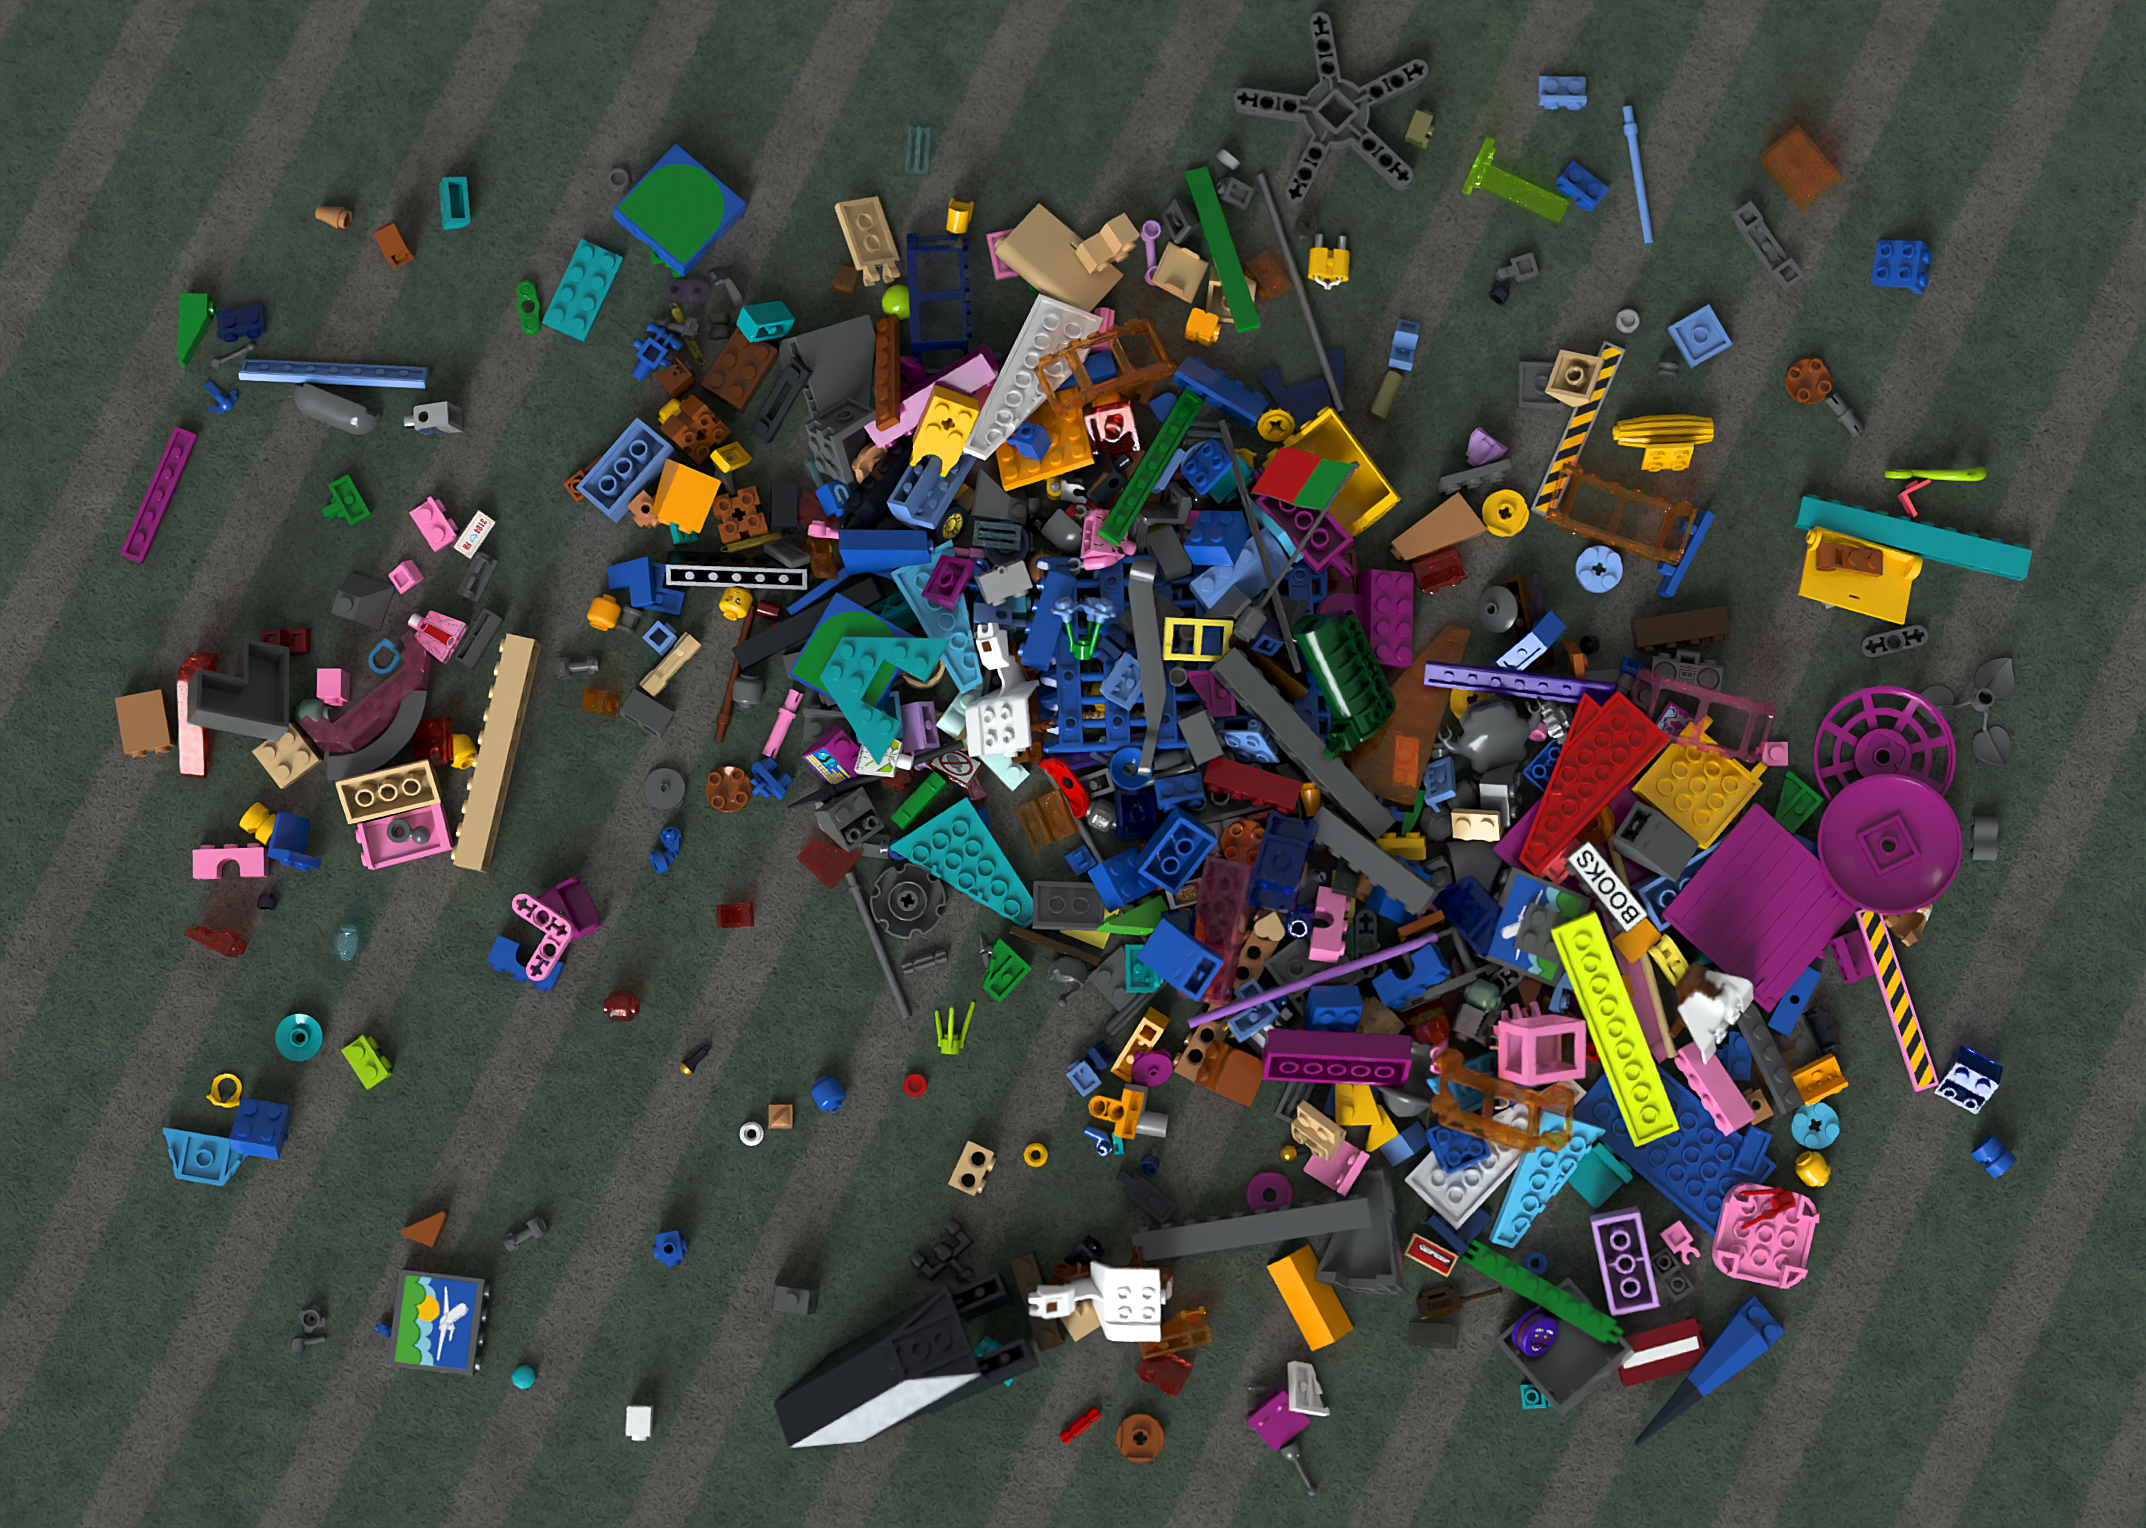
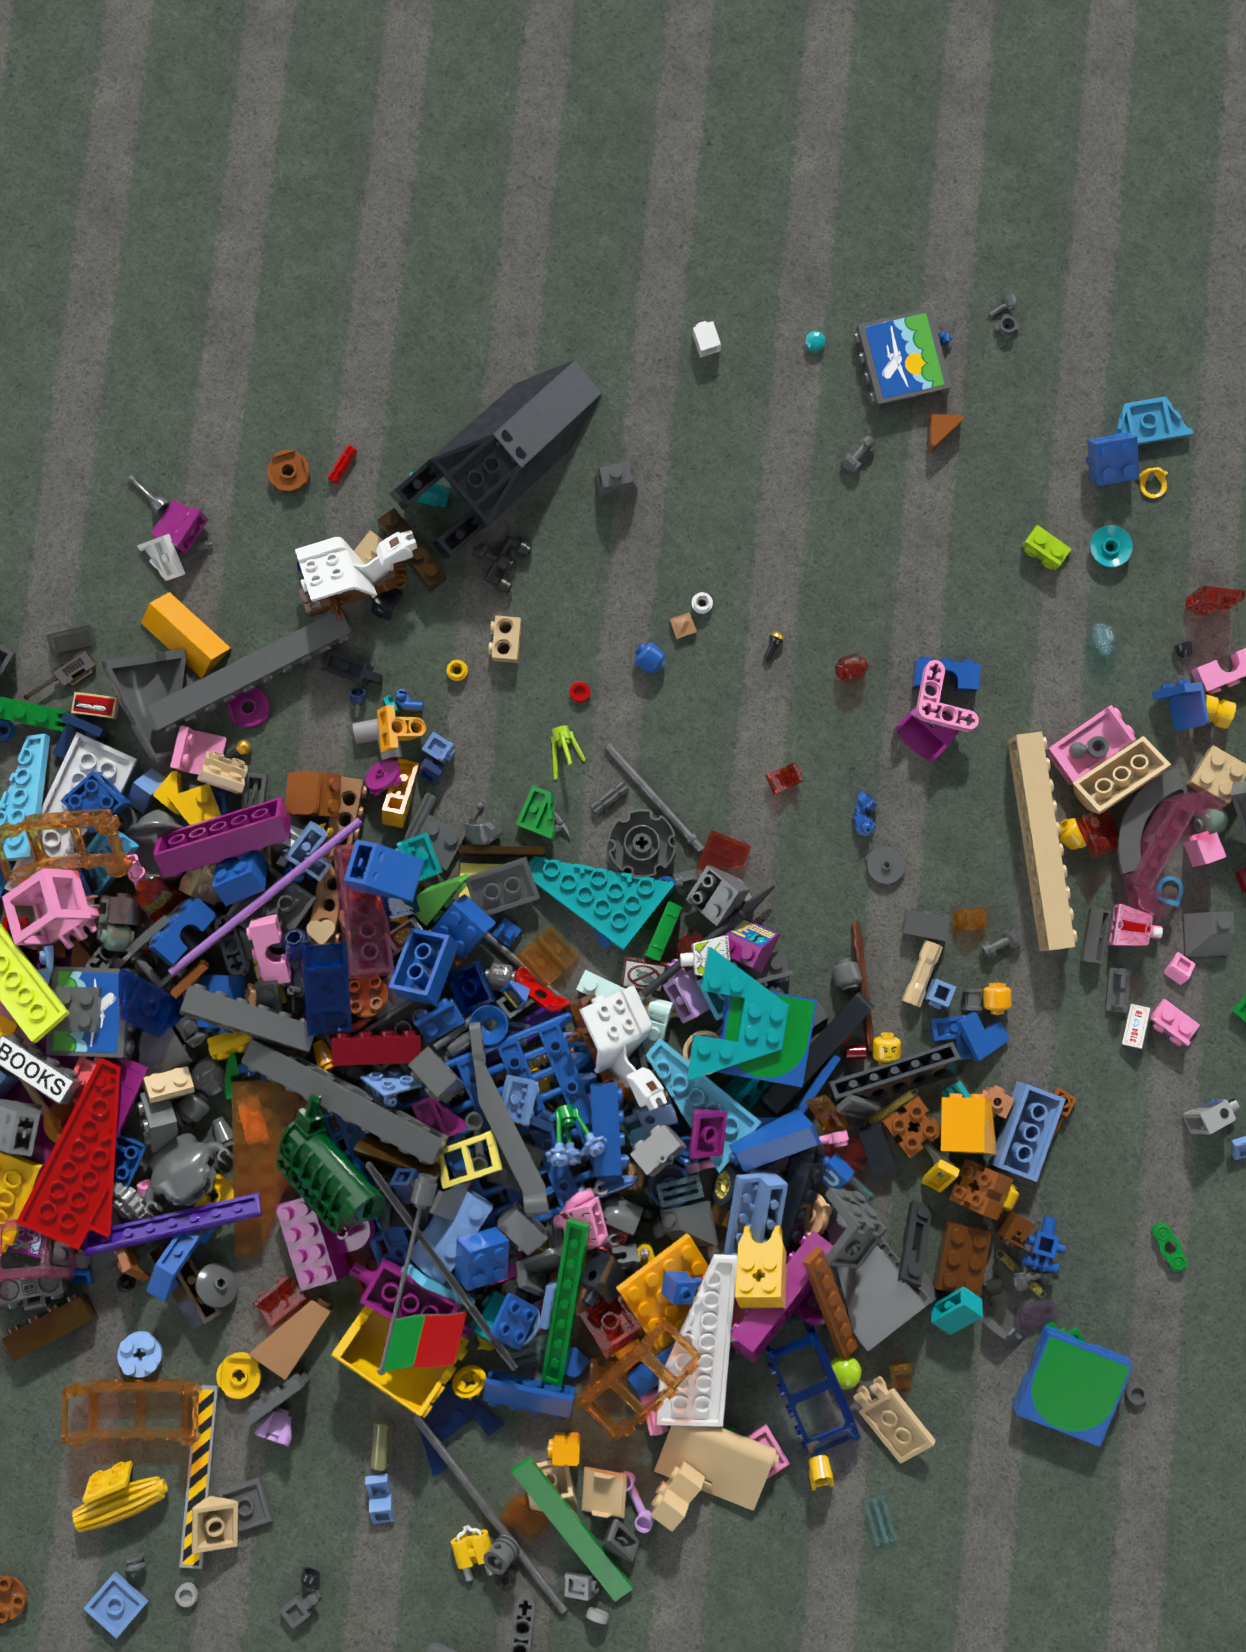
camera: 160 degrees right, 0 degrees up
(583, 290) = (1127, 1280): teal plate -> none
(679, 1245) = (734, 485): blue brick -> none
(728, 789) = (831, 884): dark orange dish -> none
(763, 772) = (807, 910): blue hips -> none
(782, 723) = (806, 957): bright pink pin -> none
(975, 791) = (617, 957): clear pink bush -> none
(1092, 790) = (515, 993): none -> slope
(1166, 1372) = (286, 532): clear red bracket -> none
(1178, 1333) = (282, 566): clear orange slope -> none
(1300, 251) = (502, 1553): none -> dark grey piece
(1439, 782) = (215, 1110): medium blue bracket -> none
(1674, 573) = (70, 1373): blue hinge -> none

